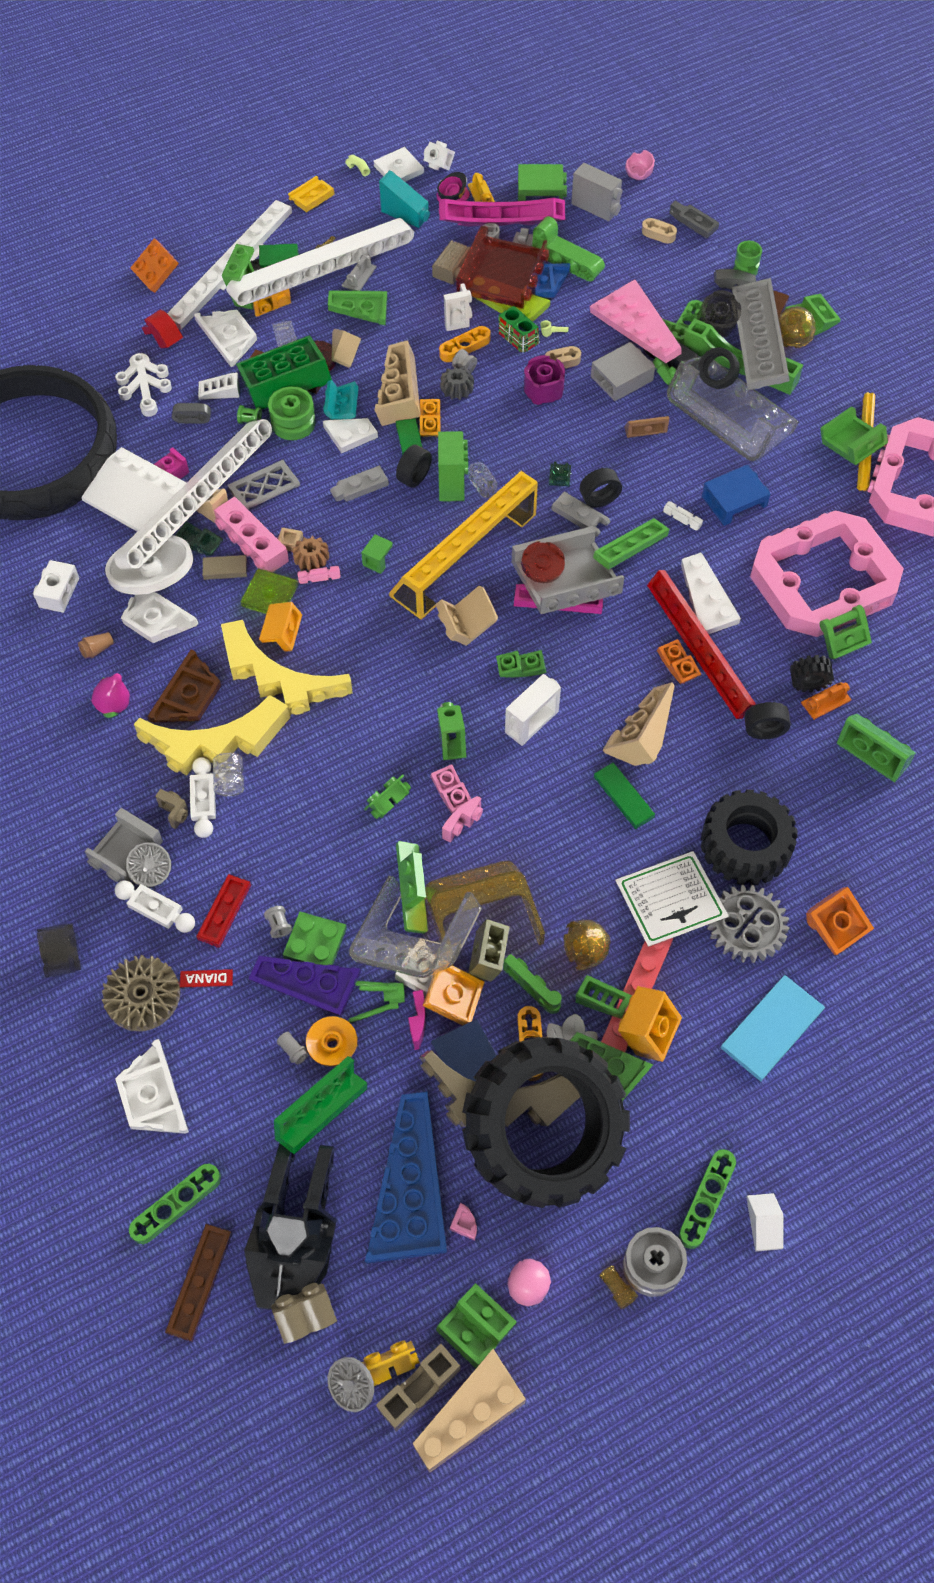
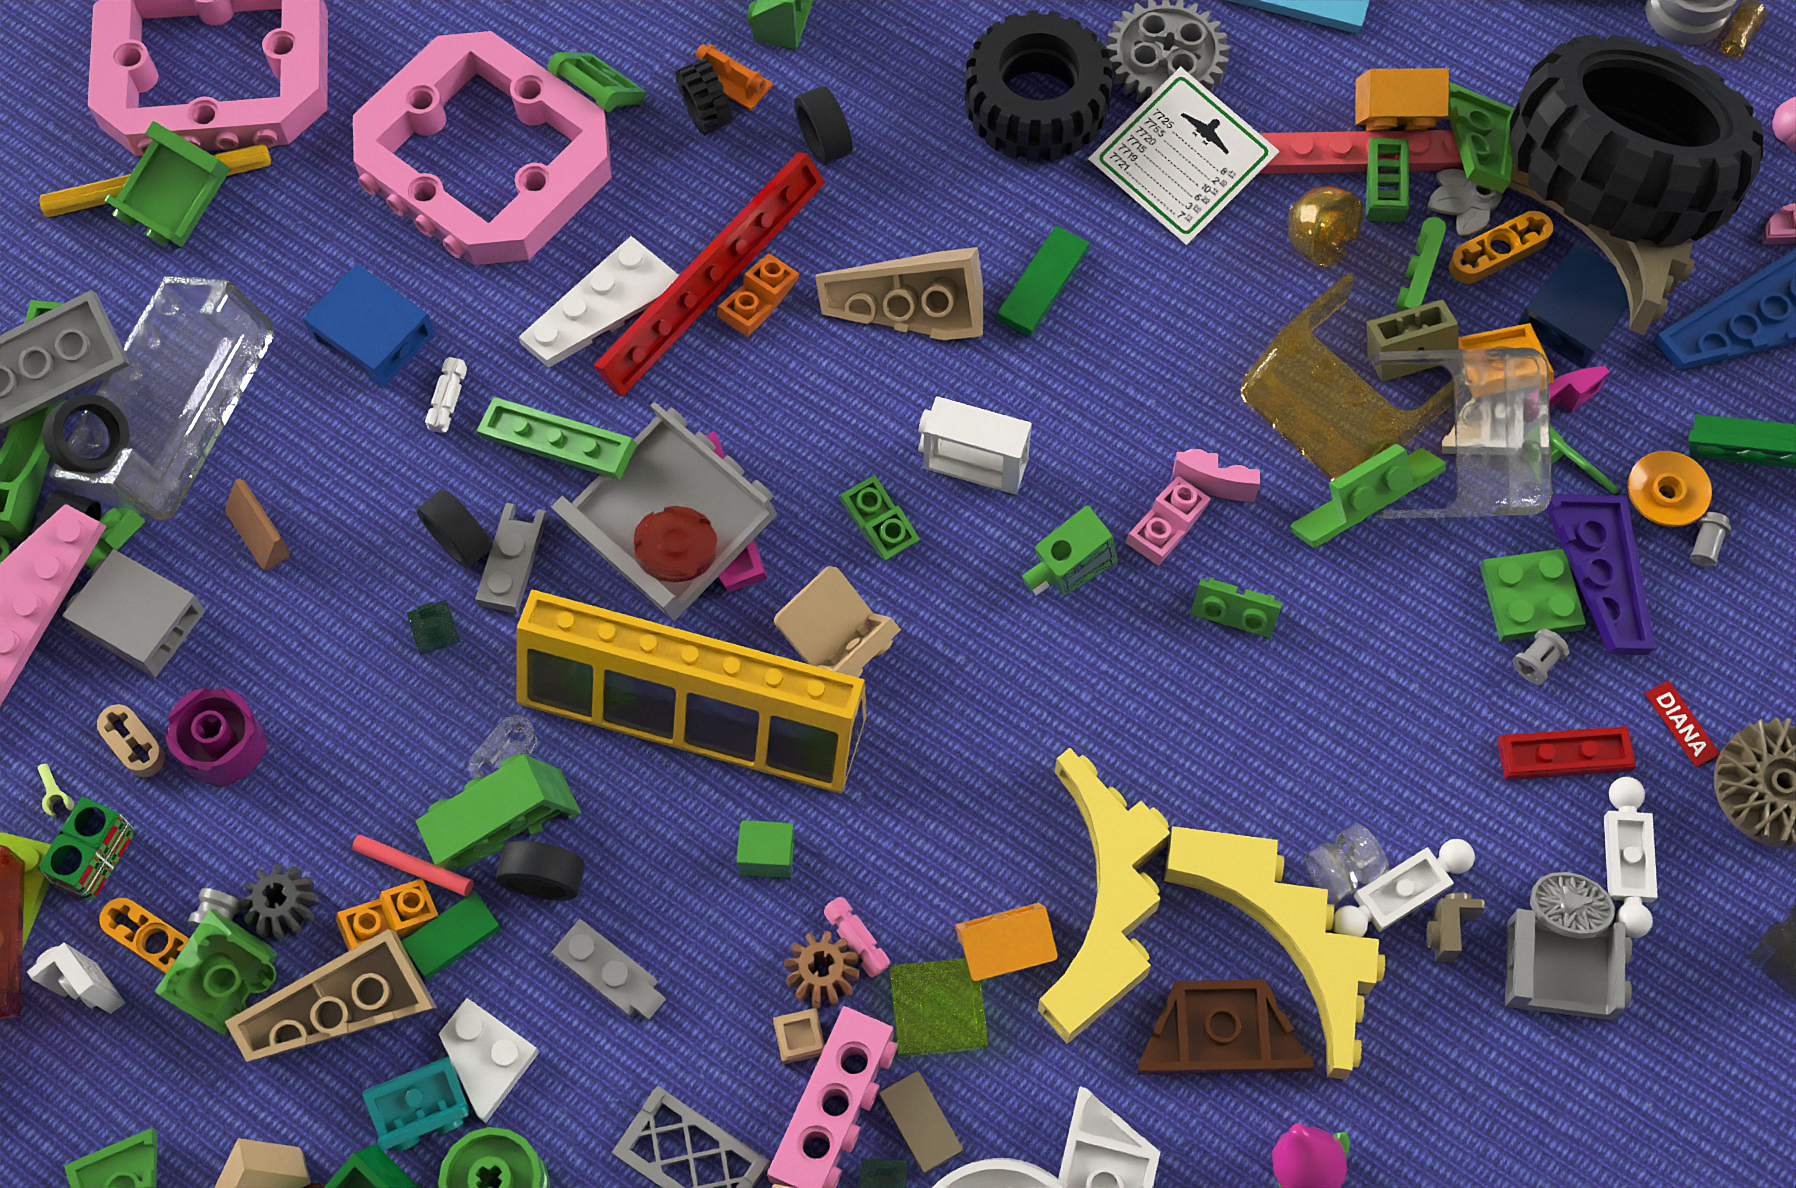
camera: 115 degrees left, 5 degrees up
(436, 353) = (218, 971): none -> bright green slope
(455, 427) = (413, 865): none -> coral bar

